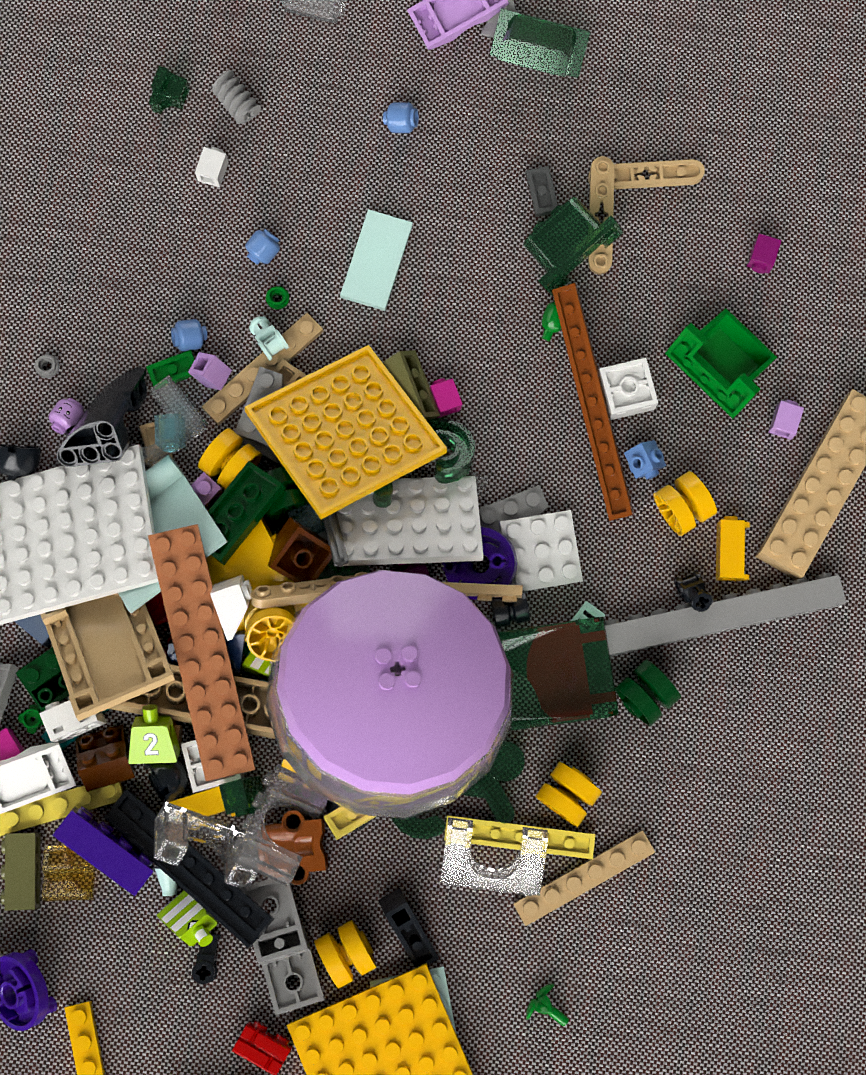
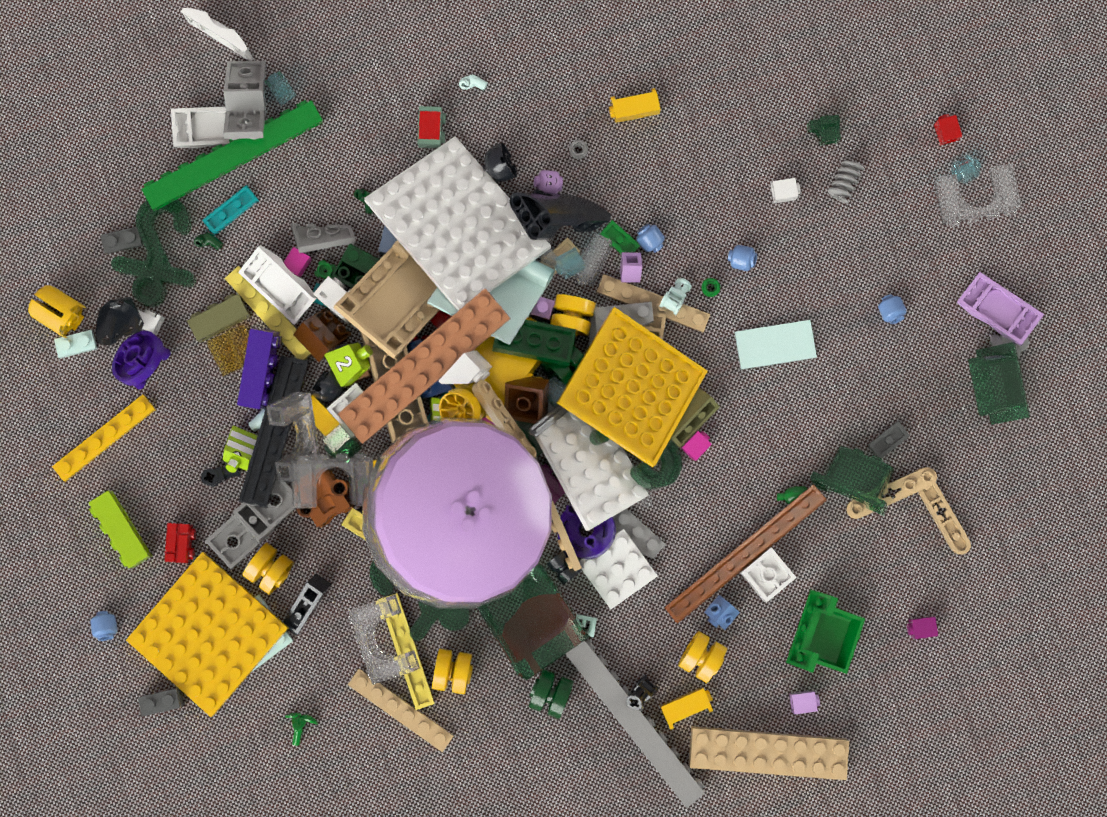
camera: 65 degrees right, 5 degrees up
(32, 280) = (634, 106): none -> yellow brick

